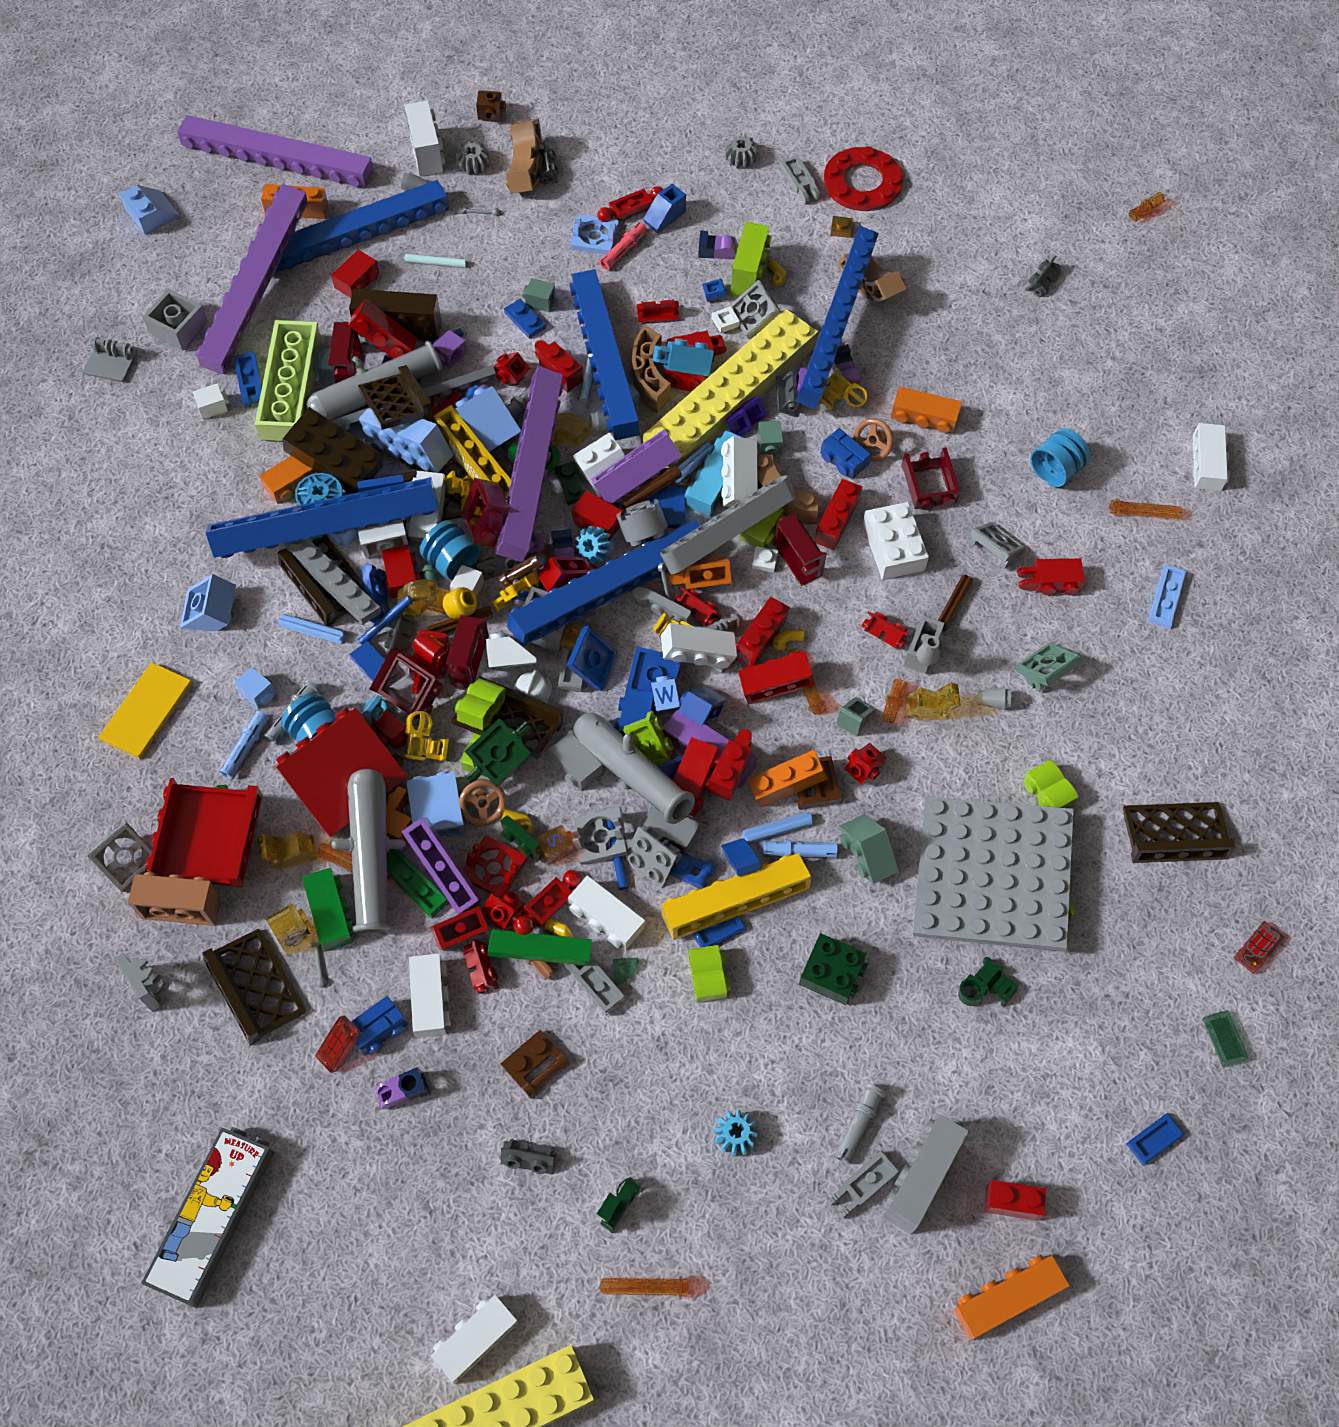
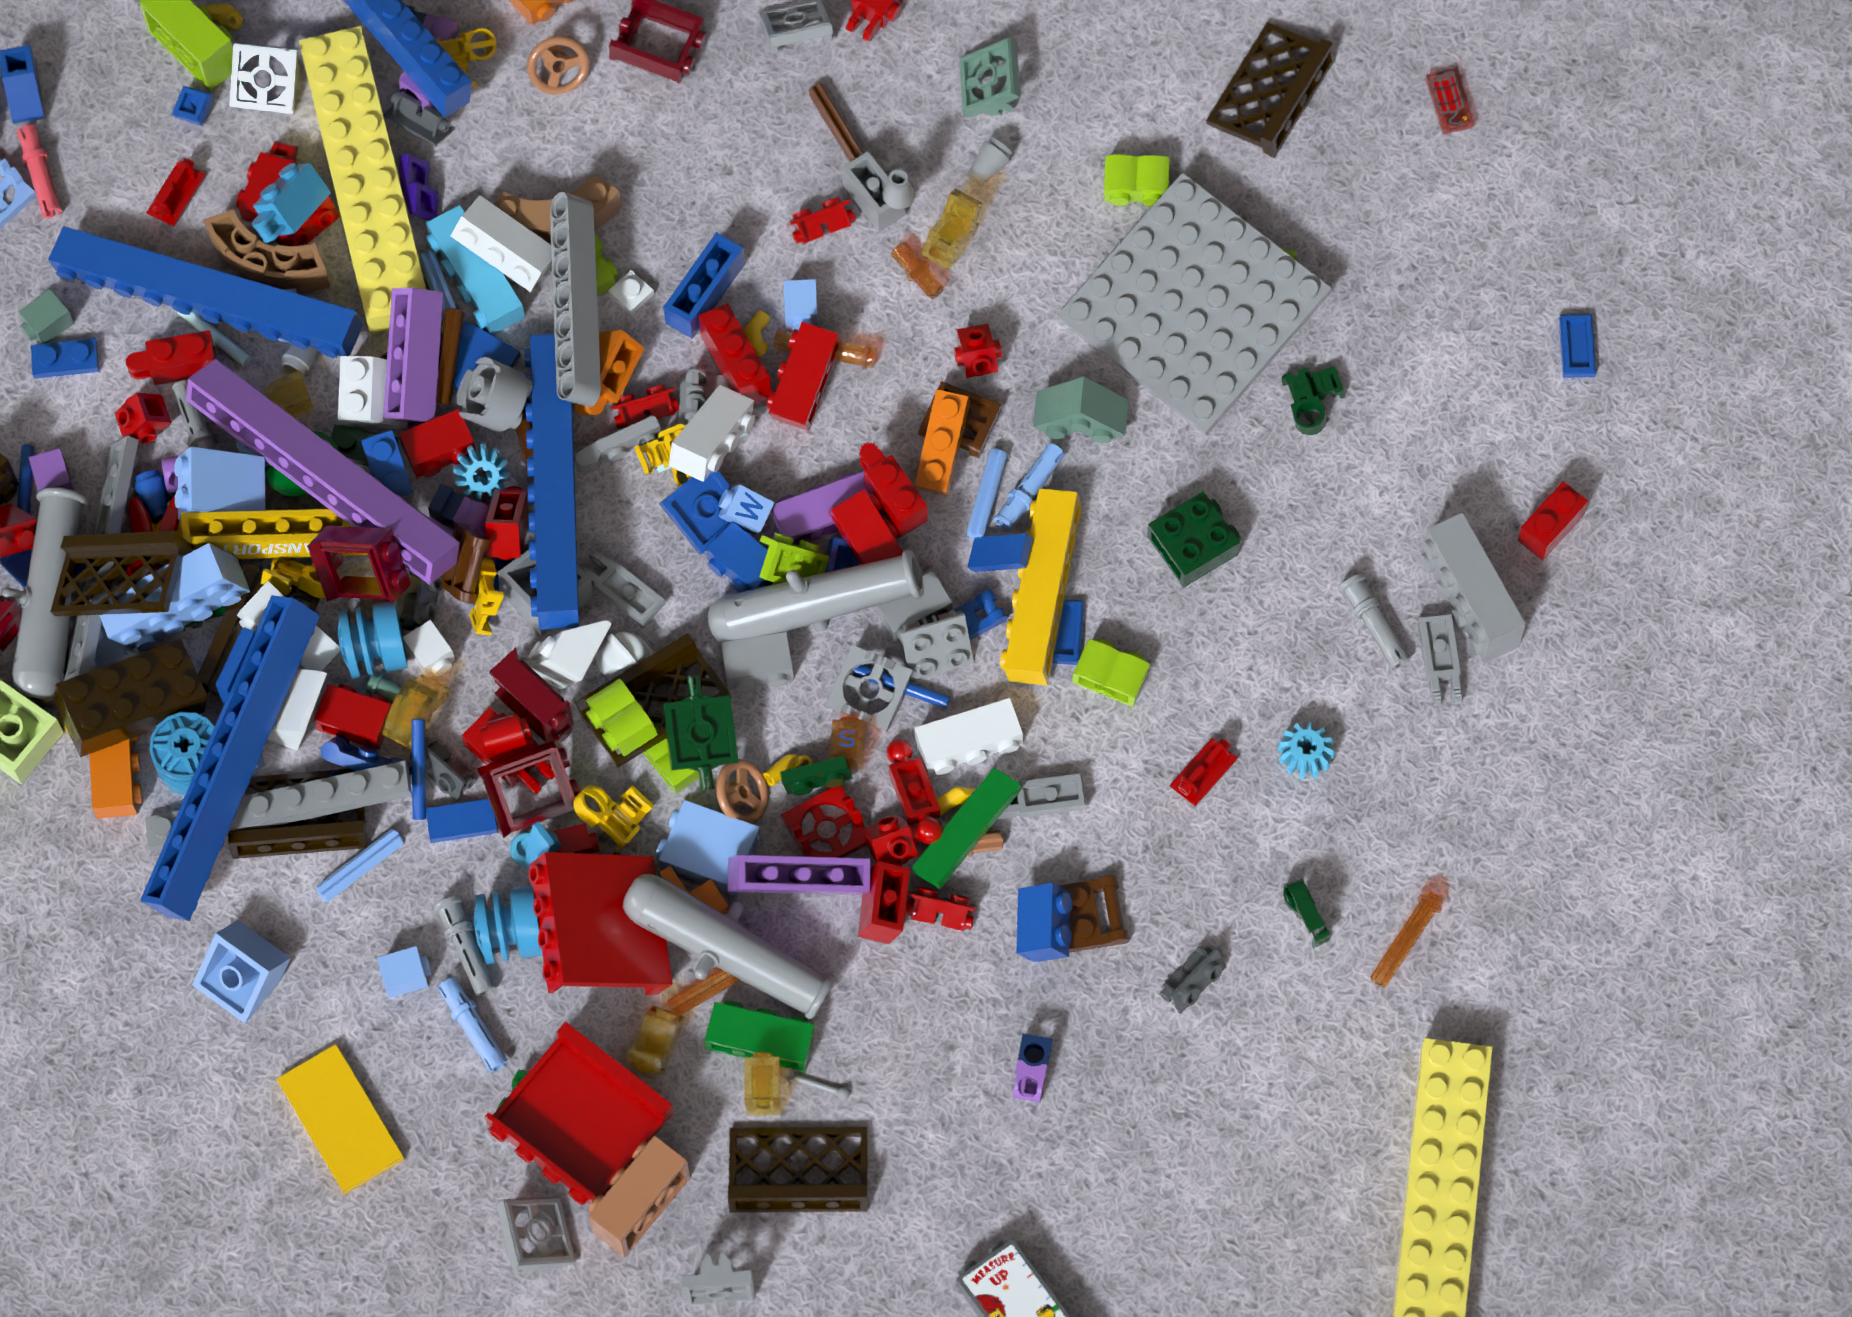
camera: 55 degrees left, 5 degrees up
(337, 1044) = (937, 1106): clear red tile -> none
(378, 1025) = (939, 1056): blue brick -> none
(415, 883) = (796, 923): green tile -> none
(429, 995) = (940, 981): white brick -> none
(451, 624) = (473, 686): reddish brown axle -> none
(459, 602) = (458, 668): yellow head -> none
(473, 1338) = (1352, 1137): white brick -> none
(505, 1034) = (1043, 922): none -> blue brick
(562, 496) = (386, 462): none -> blue brick
(570, 636) = (599, 565): pearl gold plate -> none
(592, 658) = (638, 562): blue tile -> none
(624, 969) = (1045, 758): clear green tile -> none
(662, 568) = (581, 413): light grey hinge -> none
(679, 1075) = (1204, 771): none -> red hinge
(701, 705) = (786, 477): blue brick -> none
(716, 246) = (126, 60): leg -> none
(725, 319) = (249, 121): white plate -> none
(770, 437) = (468, 179): sand green brick -> none
(796, 589) = (704, 284): none -> blue brick
(799, 550) = (653, 245): dark red window -> none
(823, 649) = (800, 303): none -> light blue brick
(838, 514) = (633, 171): red brick -> none
(845, 453) = (552, 110): blue brick -> none
(854, 715) = (908, 323): sand green slope -> none
(895, 540) = (713, 133): white brick -> none
(1010, 1297) = (1642, 589): orange brick -> none
(1225, 1038) = (1521, 204): clear green tile -> none

